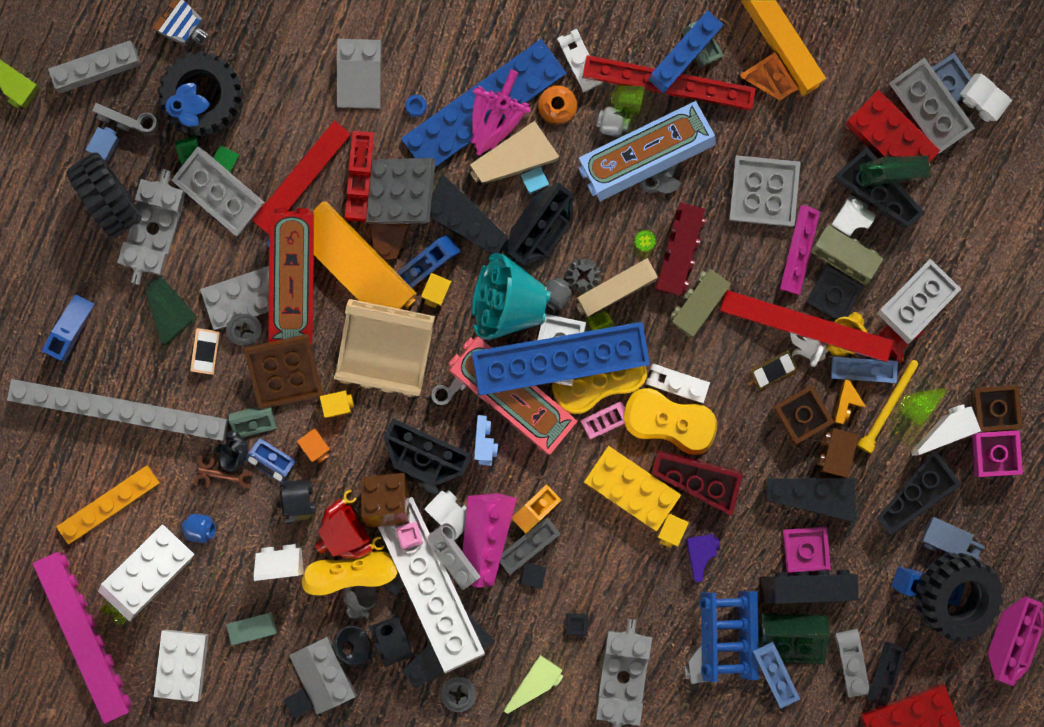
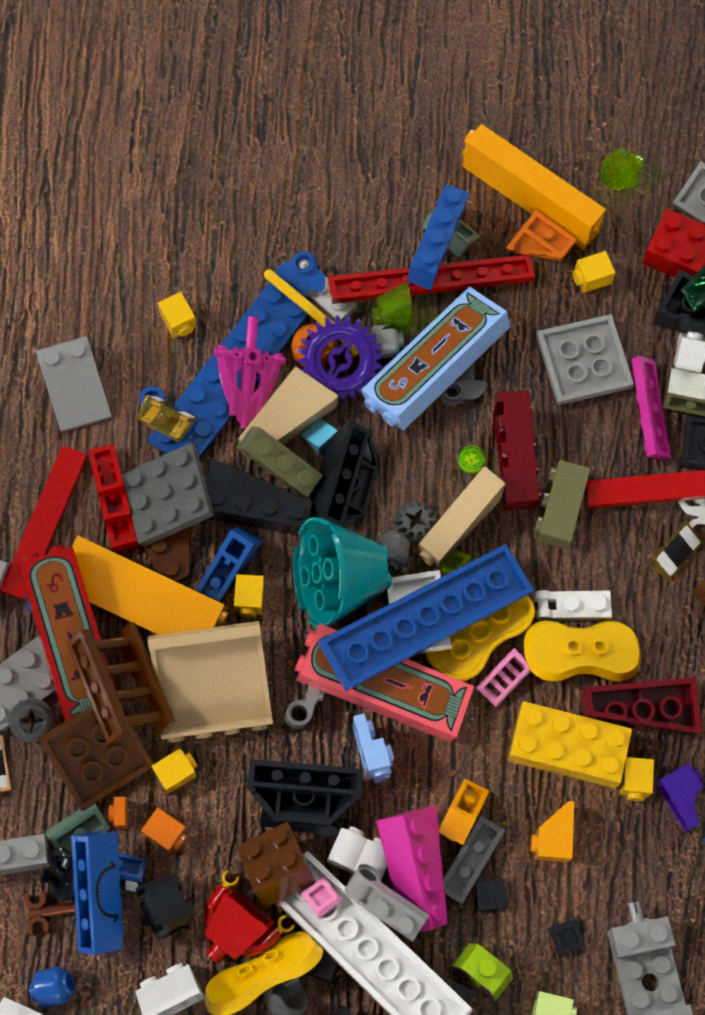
camera: 20 degrees left, 15 degrees down
(251, 474) = (97, 892): none -> blue brick
(285, 421) = (119, 813): none -> orange plate
(299, 328) = (101, 690): none -> reddish brown fence
(420, 127) = (165, 417): none -> clear yellow slope
(458, 43) = (177, 315): none -> yellow brick
(494, 195) = (279, 461): none -> olive brick
(506, 626) = (483, 970): none -> lime torso
(564, 48) = (302, 279): none -> blue plate
(583, 112) = (353, 336): none -> dark purple gear
(587, 115) = (302, 302): none -> yellow piece
(595, 550) = (555, 836): none -> light orange slope
(800, 120) = (594, 272): none -> yellow brick
(858, 40) = (621, 168): none -> clear neon green hair

